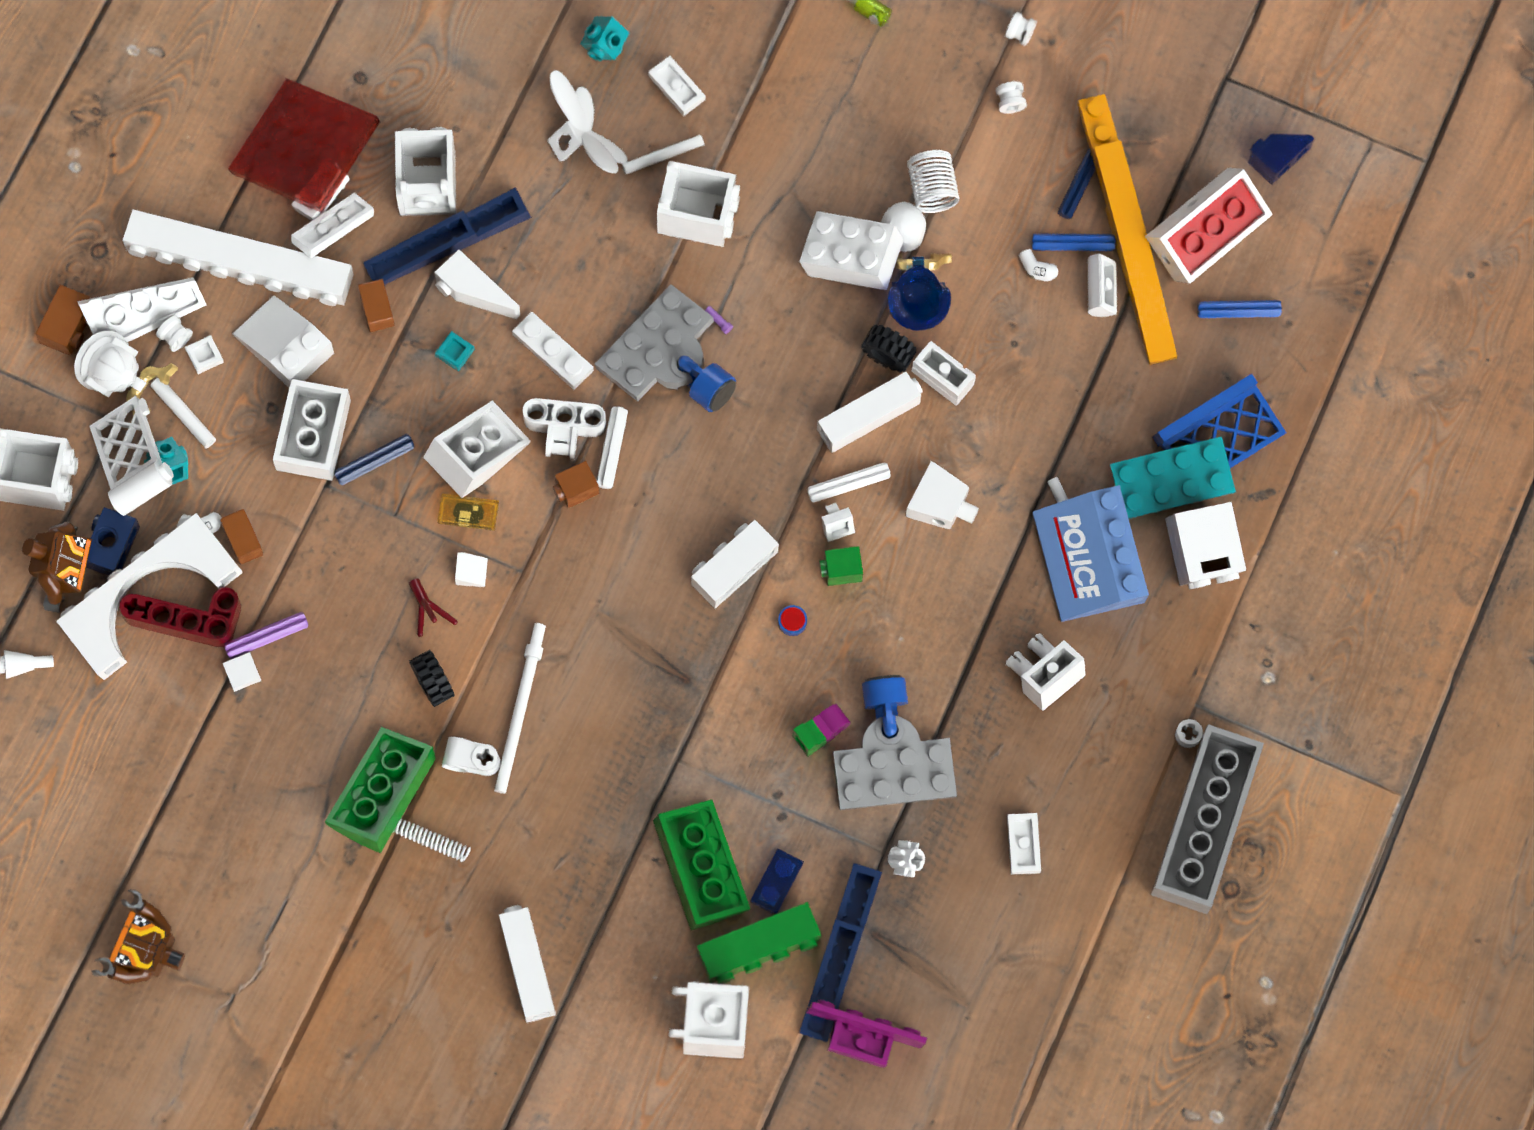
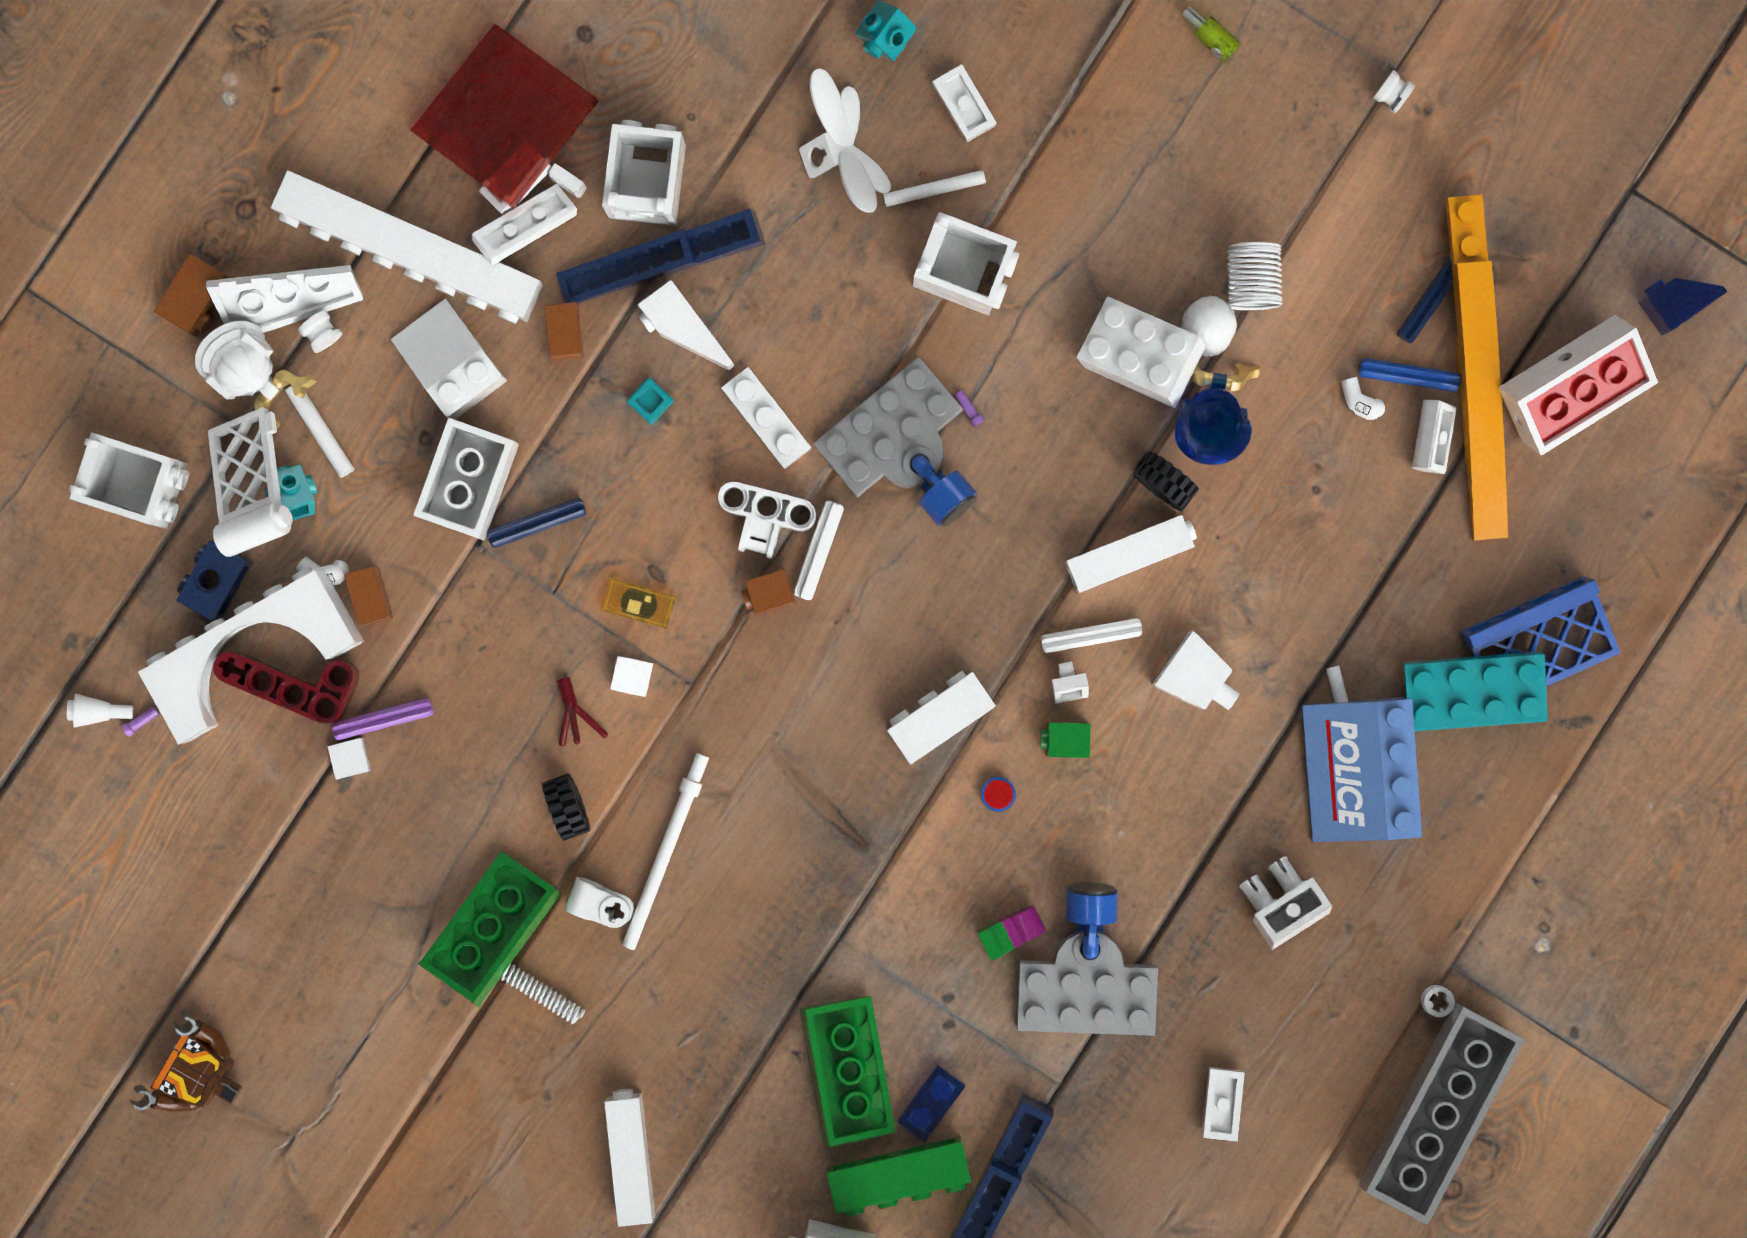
camera: 10 degrees right, 15 degrees up
(58, 562) = (146, 601): reddish brown torso -> none
(58, 669) = (130, 728): none -> medium lavender piece
(204, 354) = (353, 360): white tile -> none
(363, 188) = (567, 181): none -> white tile
(475, 448) = (658, 528): white slope -> none
(906, 858) = (1084, 1103): white gear -> none
(943, 373) = (1226, 522): white brick -> none
(1011, 97) = (1366, 179): white wheel -> none
(1202, 537) = (1501, 786): white container -> none
(1239, 309) = (1593, 489): axle -> none

